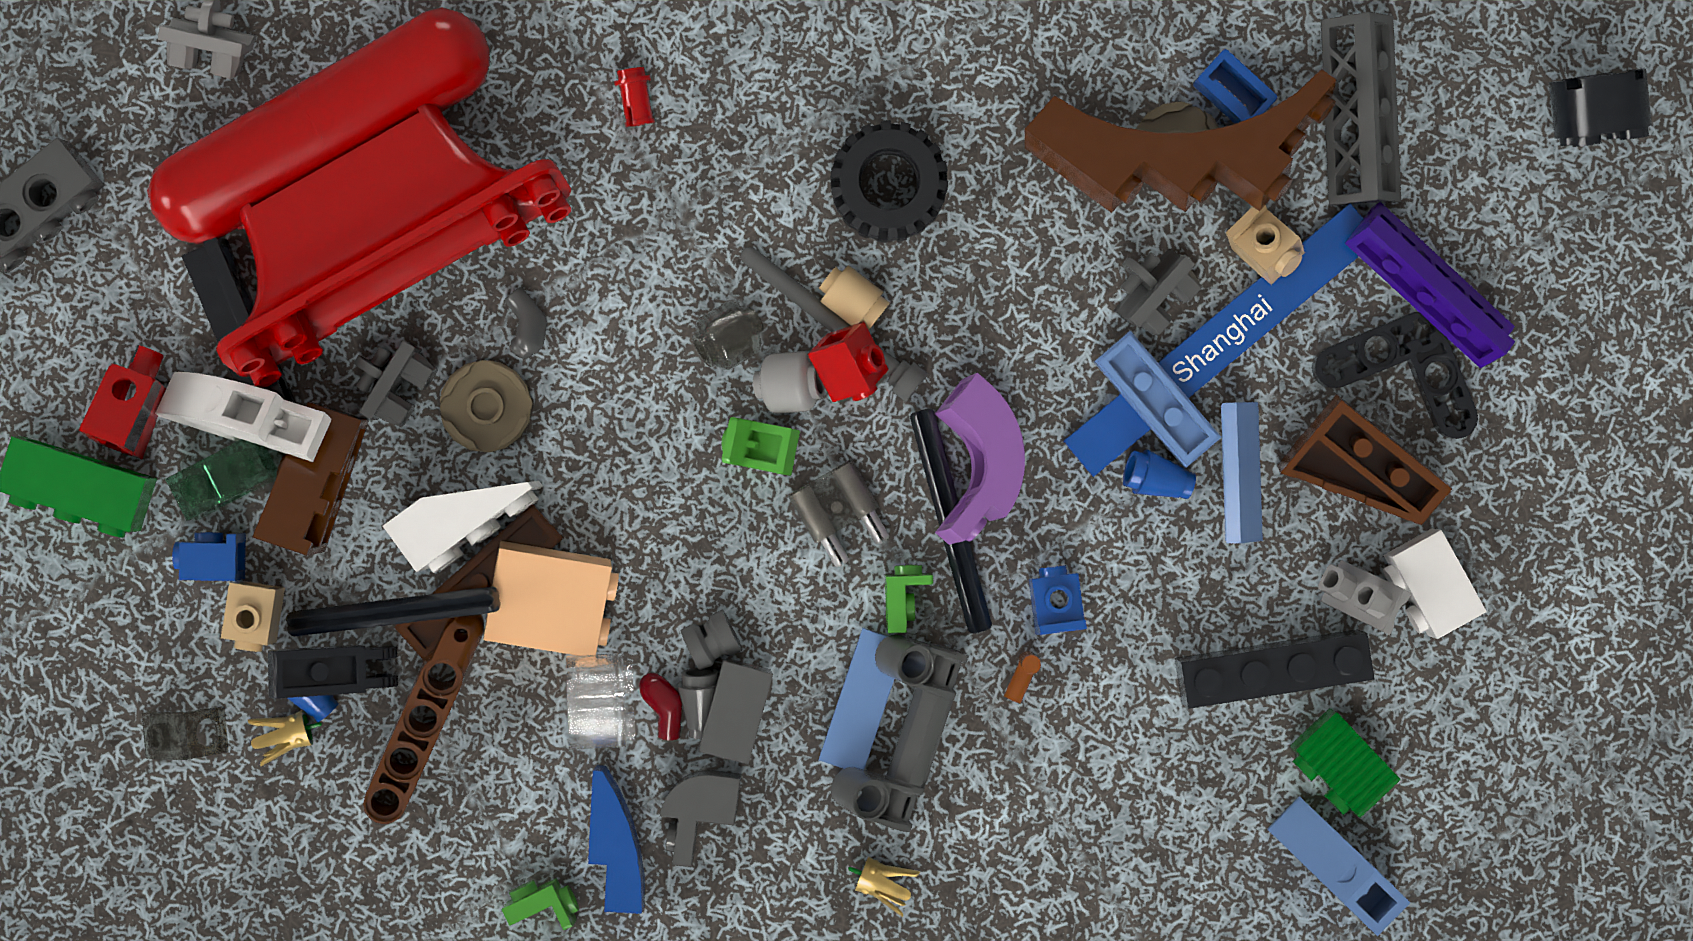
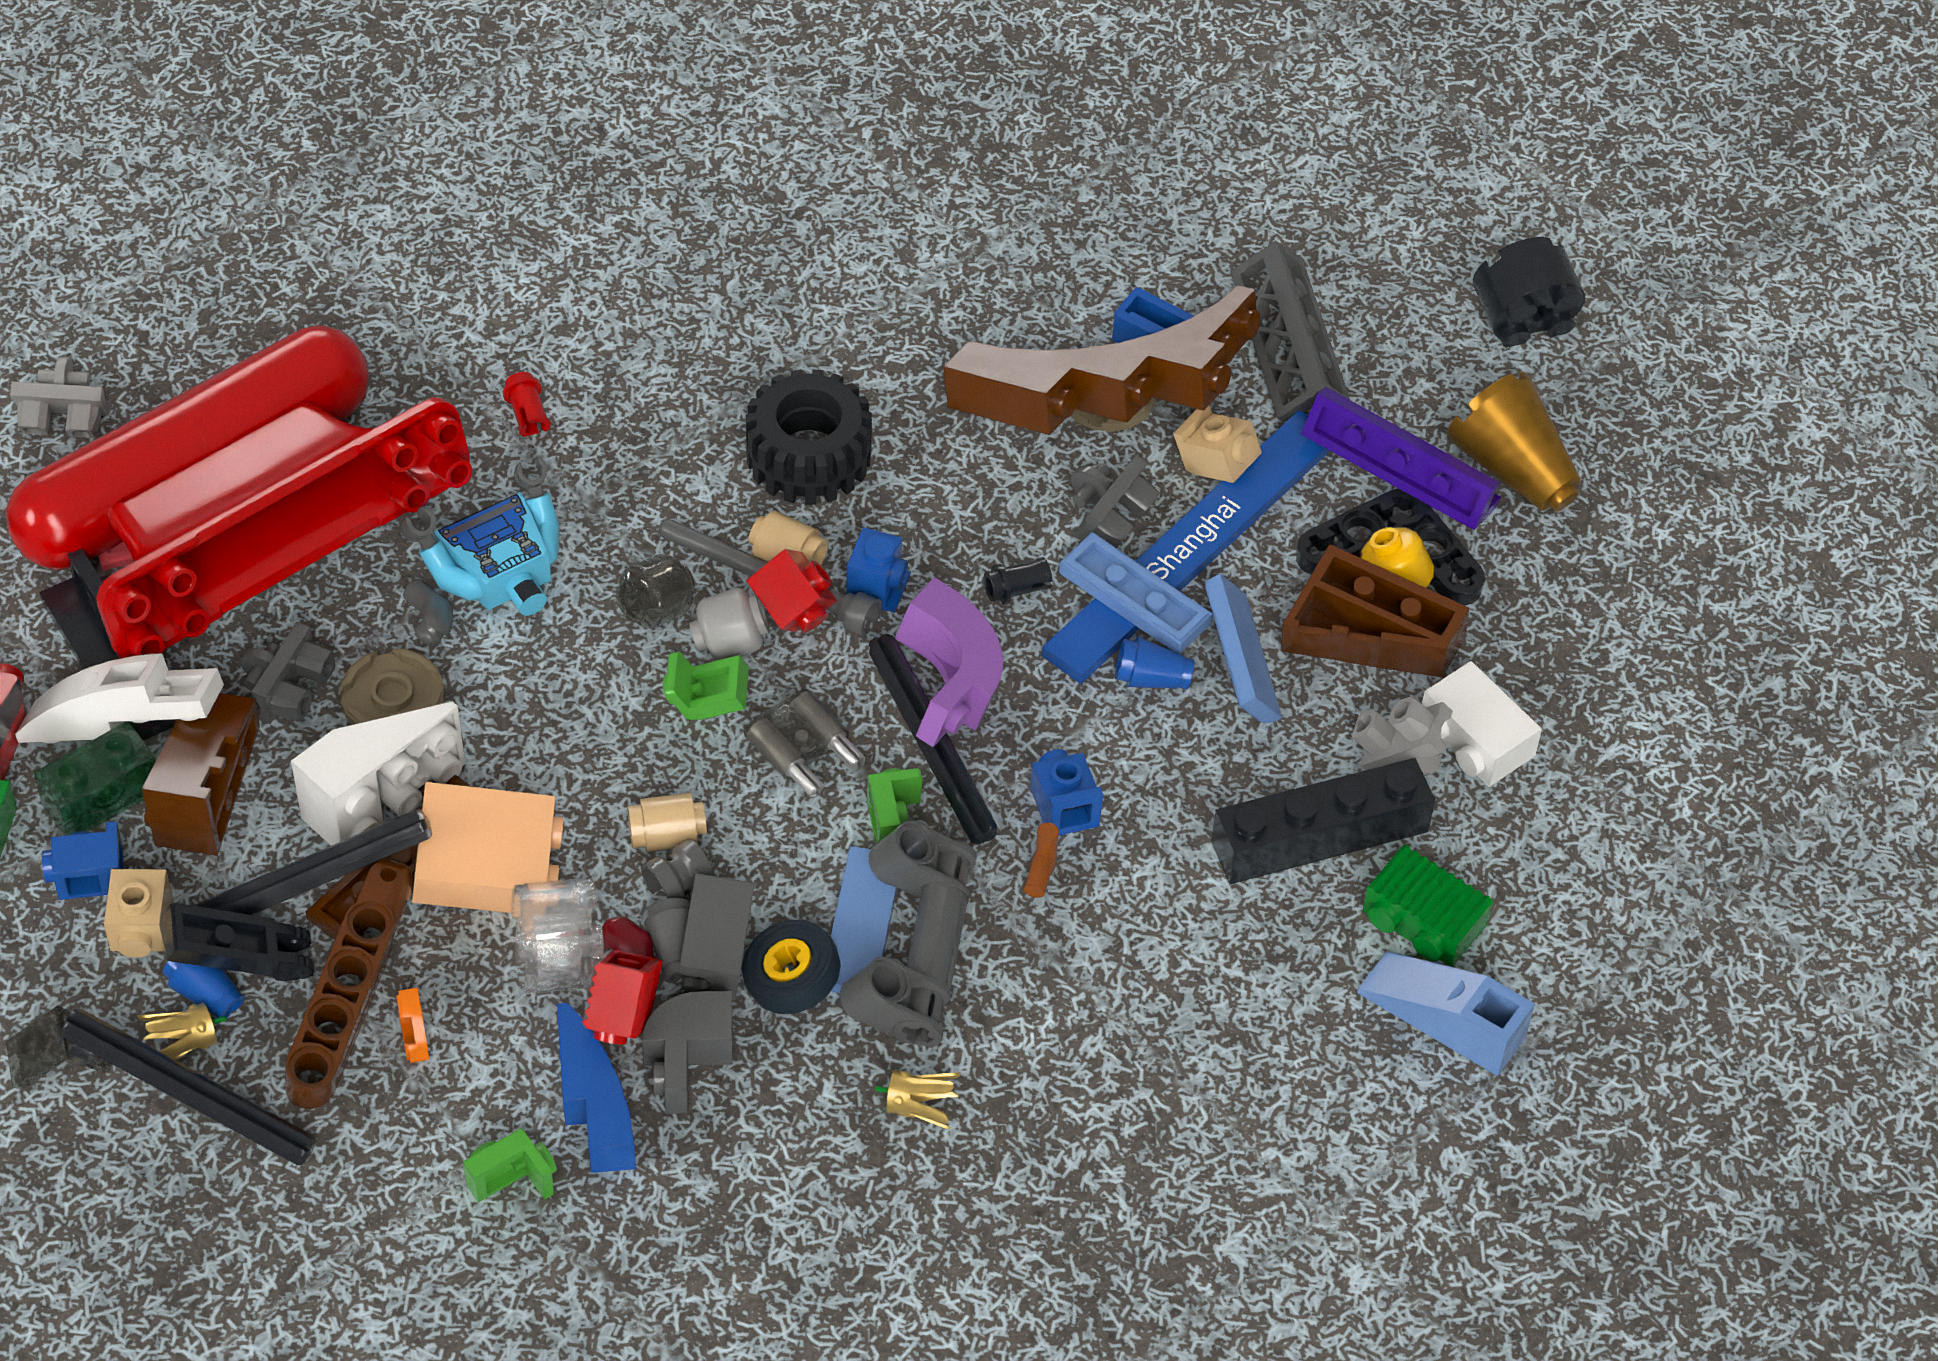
camera: 10 degrees left, 35 degrees down
(284, 796) = (188, 1086): none -> black axle
(474, 752) = (413, 1035): none -> orange tile
(590, 272) = (495, 551): none -> torso
(647, 775) = (622, 996): none -> brick
(707, 585) = (665, 821): none -> tan brick
(817, 749) = (794, 989): none -> black bush
(930, 343) = (878, 568): none -> blue brick
(1054, 362) = (1016, 580): none -> black pin
(1399, 406) = (1400, 553): none -> yellow head
(1545, 283) = (1518, 442): none -> pearl gold cone

